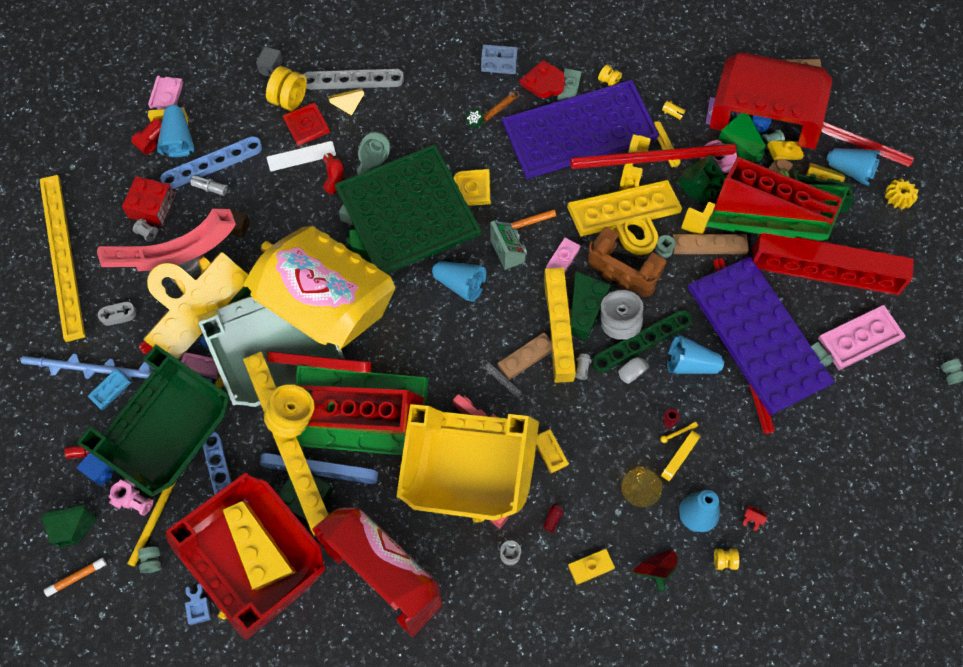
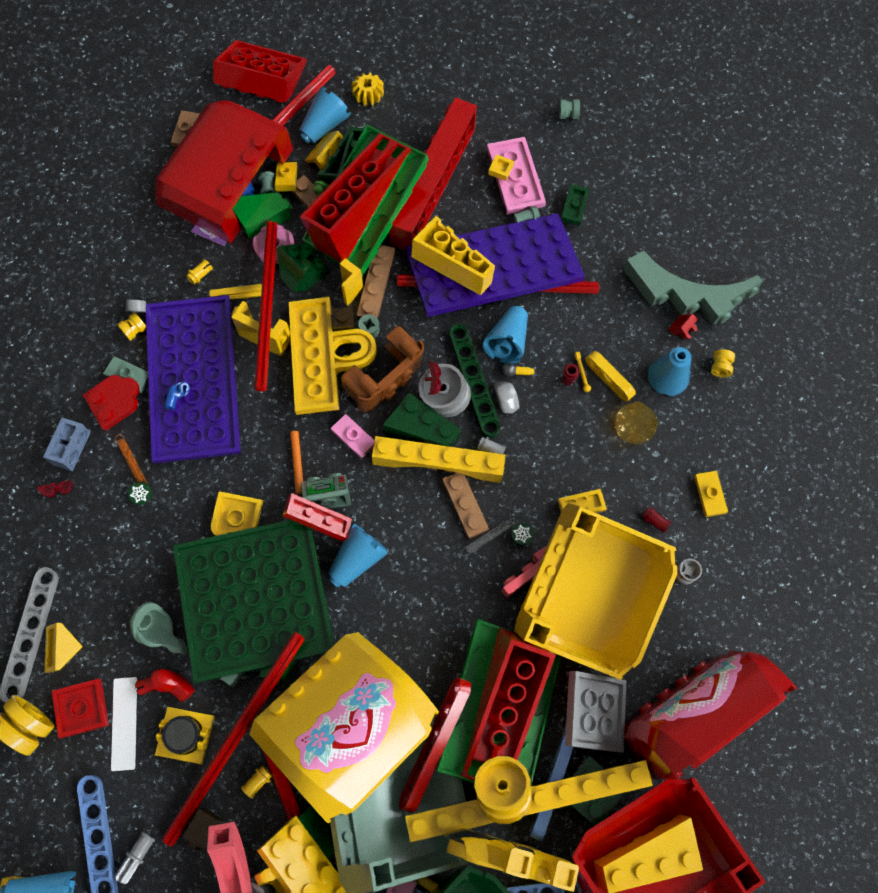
camera: 80 degrees left, 5 degrees up
(238, 411) = (512, 858): none -> yellow animal
(298, 193) = (183, 734): none -> piece
(298, 222) = (233, 739): none -> red axle
(369, 484) = (595, 712): none -> light grey plate
(463, 62) = (50, 490): none -> dark red piece
(480, 236) = (317, 517): none -> plate
(511, 405) = (522, 534): none -> dark green tile
(560, 117) = (174, 393): none -> blue arm
(625, 71) = (135, 306): none -> light grey beam
(632, 297) = (435, 382): none -> dark red piece
(658, 567) = (724, 427): shield -> none
(661, 369) = (510, 369): none -> piece
(663, 223) = (343, 318): none -> dark brown brick
(747, 287) = (452, 257): none -> yellow wedge
(787, 516) = (660, 285): none -> sand green arch
(849, 395) = (575, 205): none -> dark green plate
(860, 319) = (501, 167): none -> yellow plate
(884, 105) = (258, 70): none -> red slope

